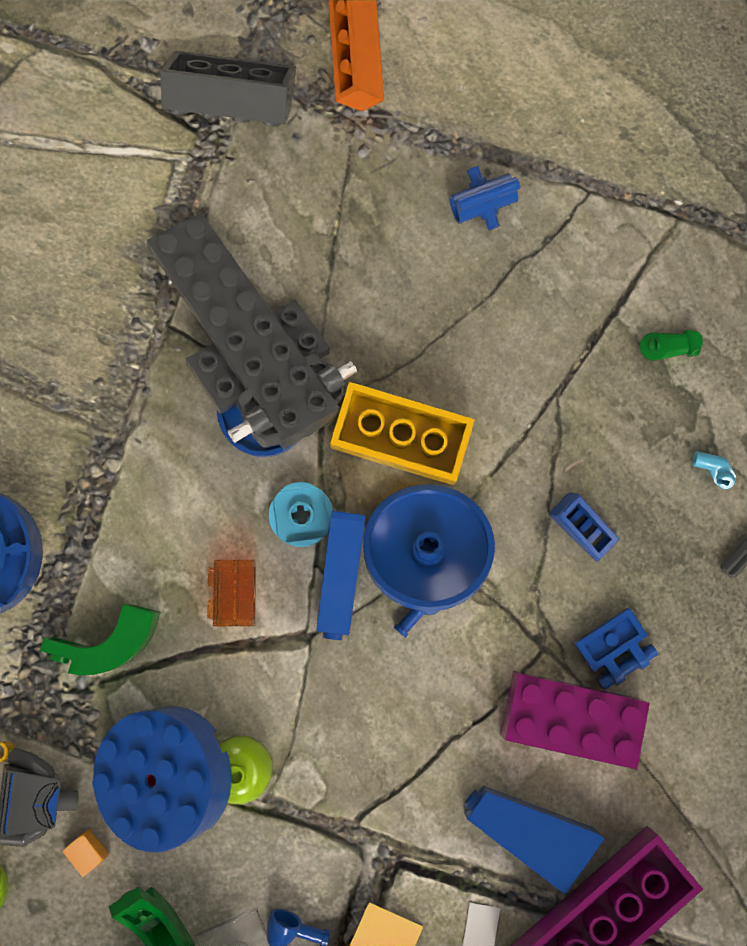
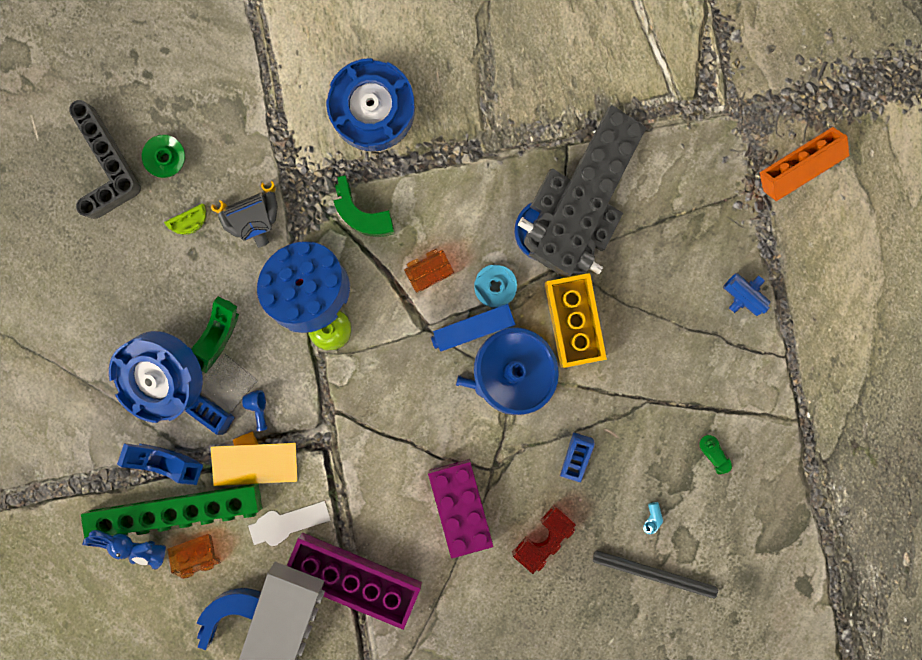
camera: 60 degrees right, 5 degrees up
(85, 852) = (237, 266): light orange slope -> none
(227, 88) = (733, 101): dark grey slope -> none
(538, 837) = (382, 521): blue slope -> none
(610, 641) = (517, 506): blue plate -> none
(685, 652) = (533, 554): none -> clear red arch

